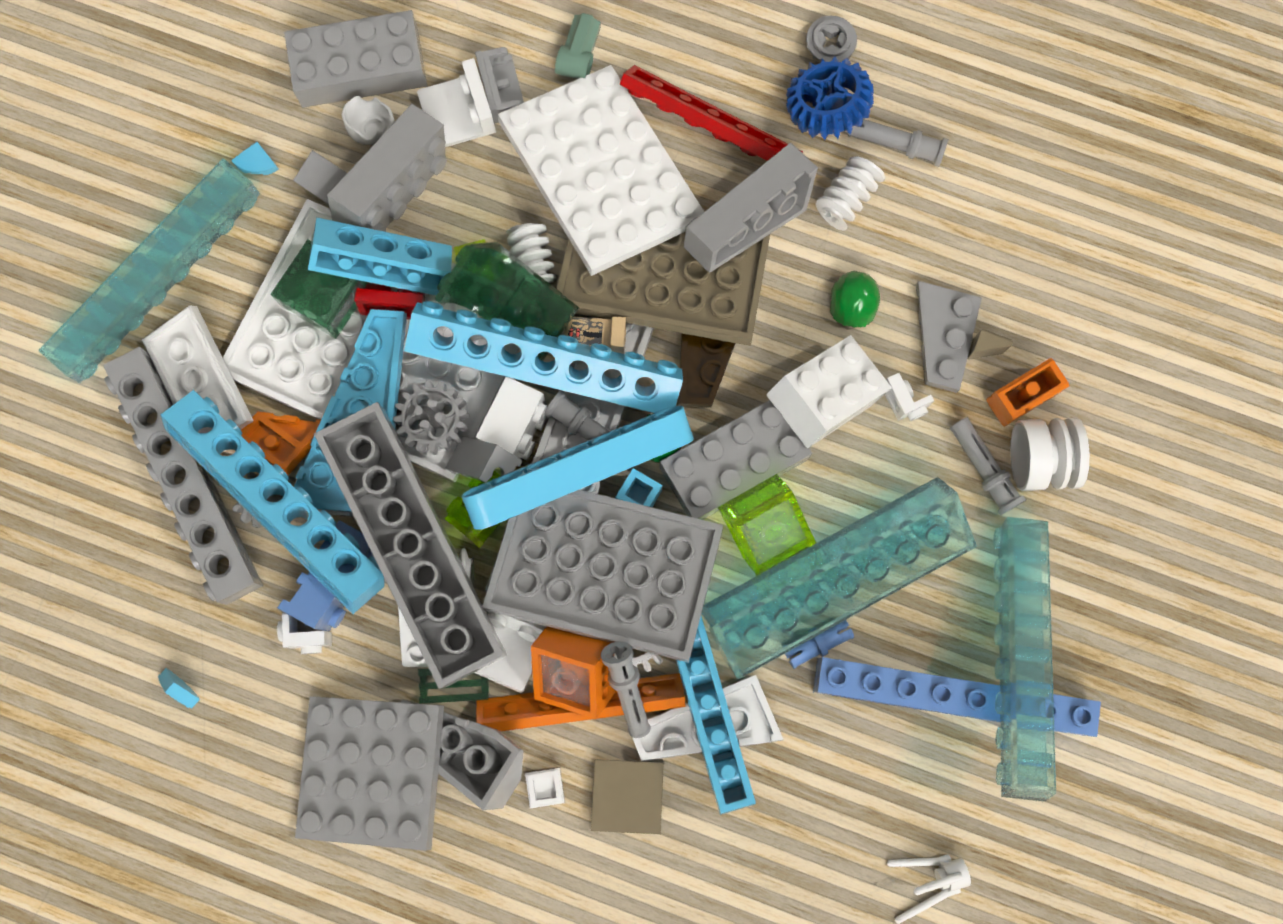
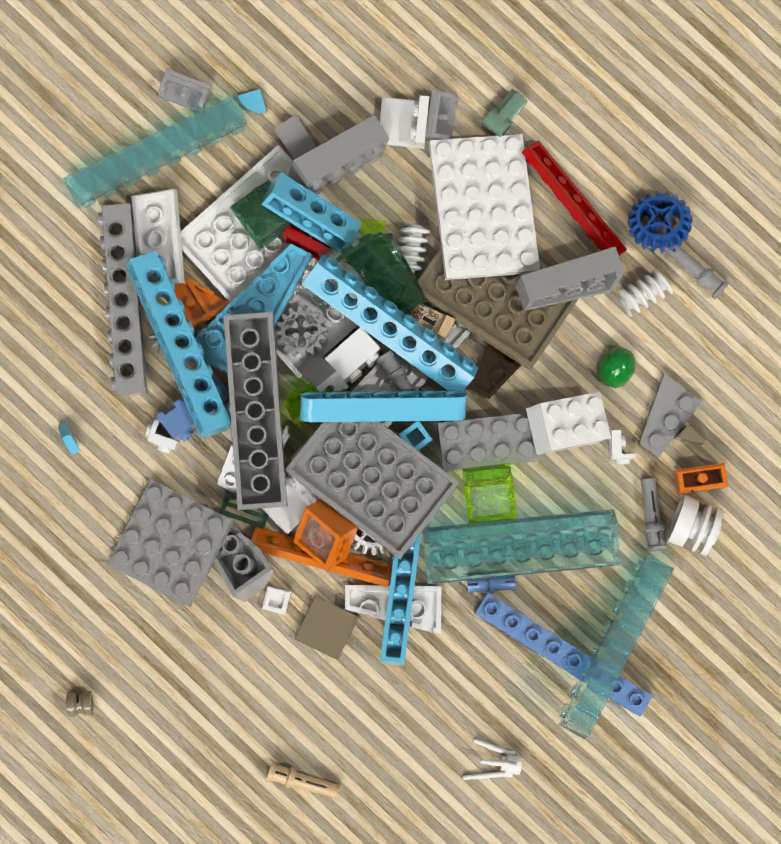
camera: 25 degrees right, 5 degrees up
(158, 180) = (184, 91): none -> light grey hinge
(355, 58) = (350, 59): light grey brick -> none
(366, 120) = (340, 106): white hair -> none
(624, 679) = (355, 553): light grey pin -> none
(831, 27) = (686, 168): light grey gear -> none

